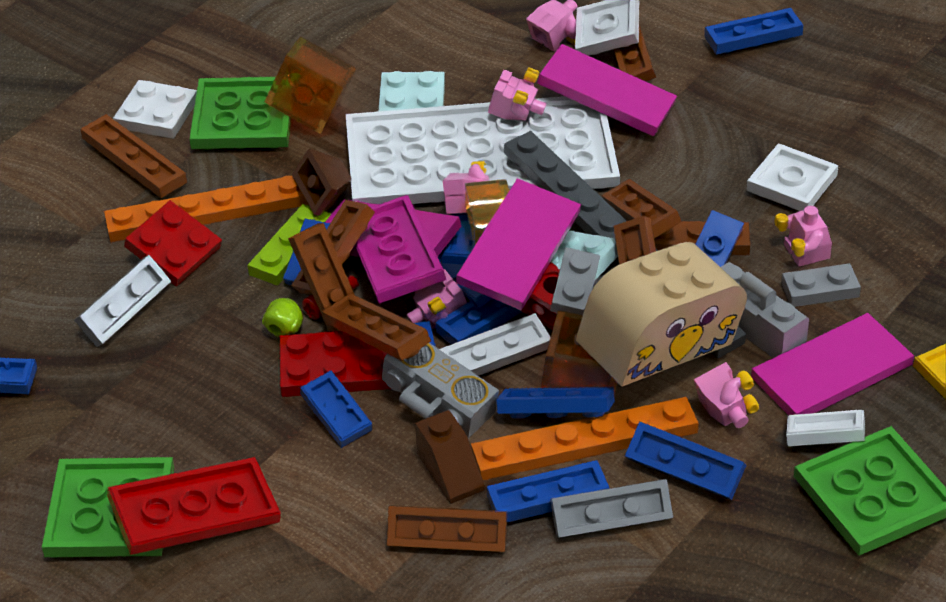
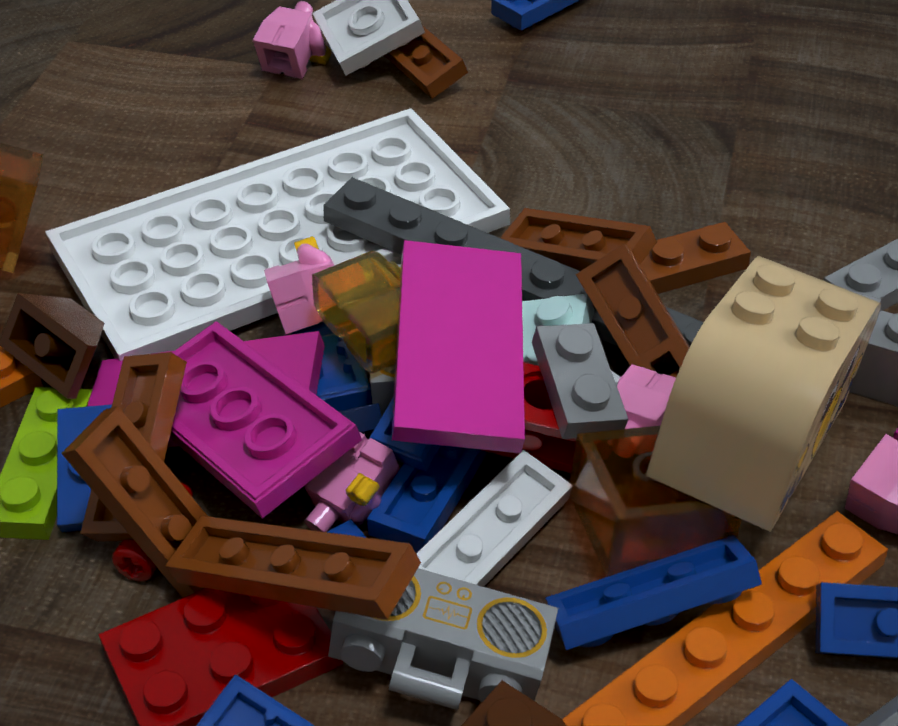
camera: 25 degrees left, 0 degrees up
(283, 317) = (91, 598): lime piece -> none
(411, 90) = (127, 174): light aqua plate -> none
(516, 97) = (302, 139): bright pink piece -> none
(607, 89) = (418, 101): dark pink tile -> none
(719, 237) = (708, 262): blue plate -> none
(792, 177) = (736, 150): white plate -> none
(808, 236) = (821, 215): bright pink piece -> none

